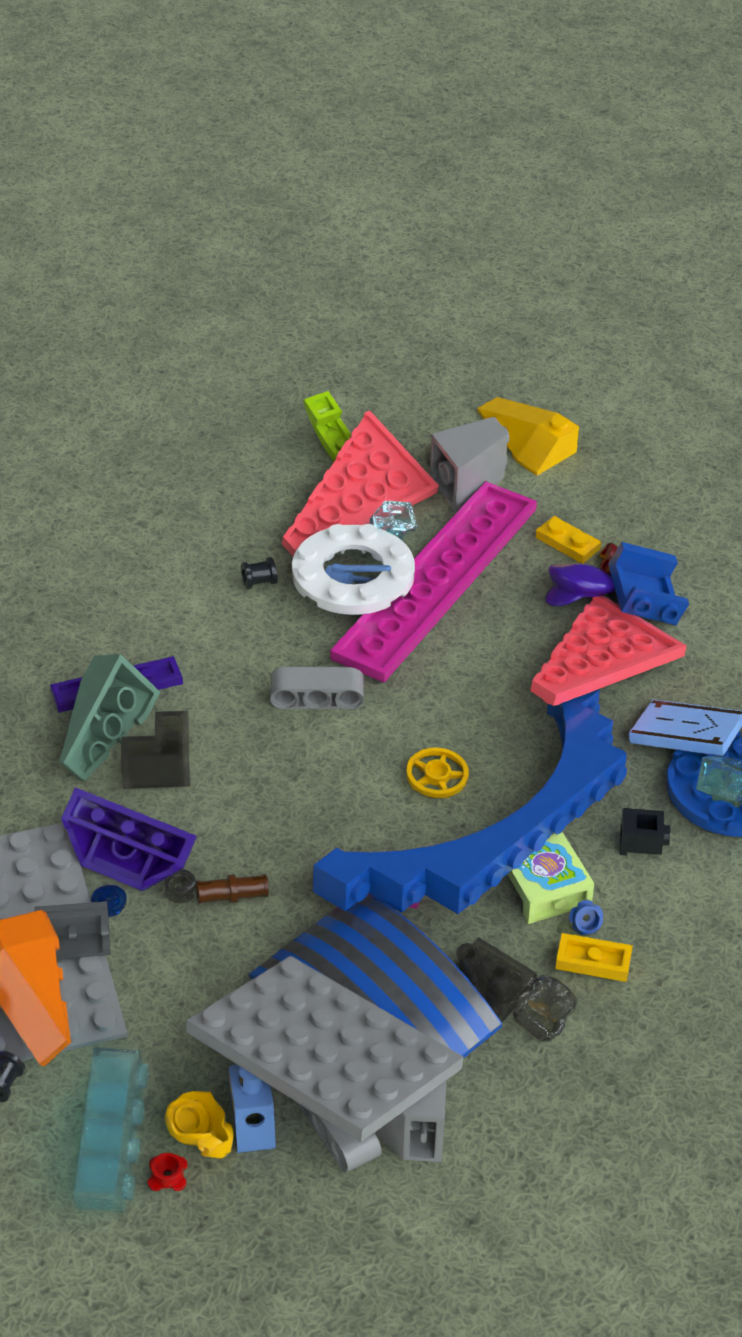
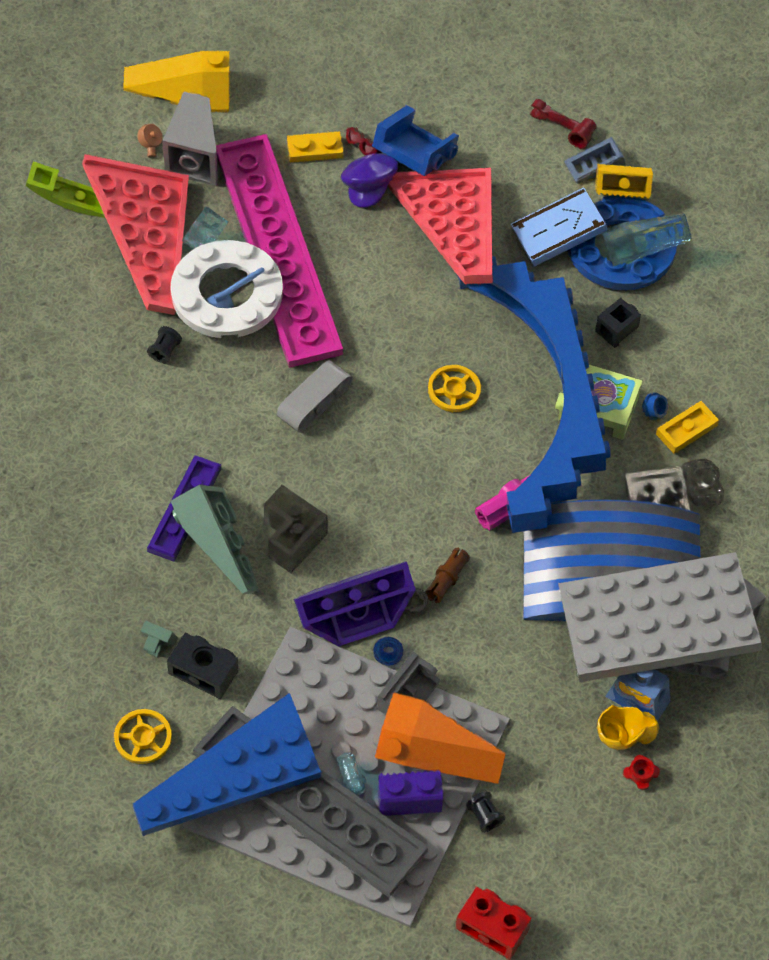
camera: 50 degrees left, 15 degrees up
(111, 1130) = (592, 778): clear light blue wedge -> none

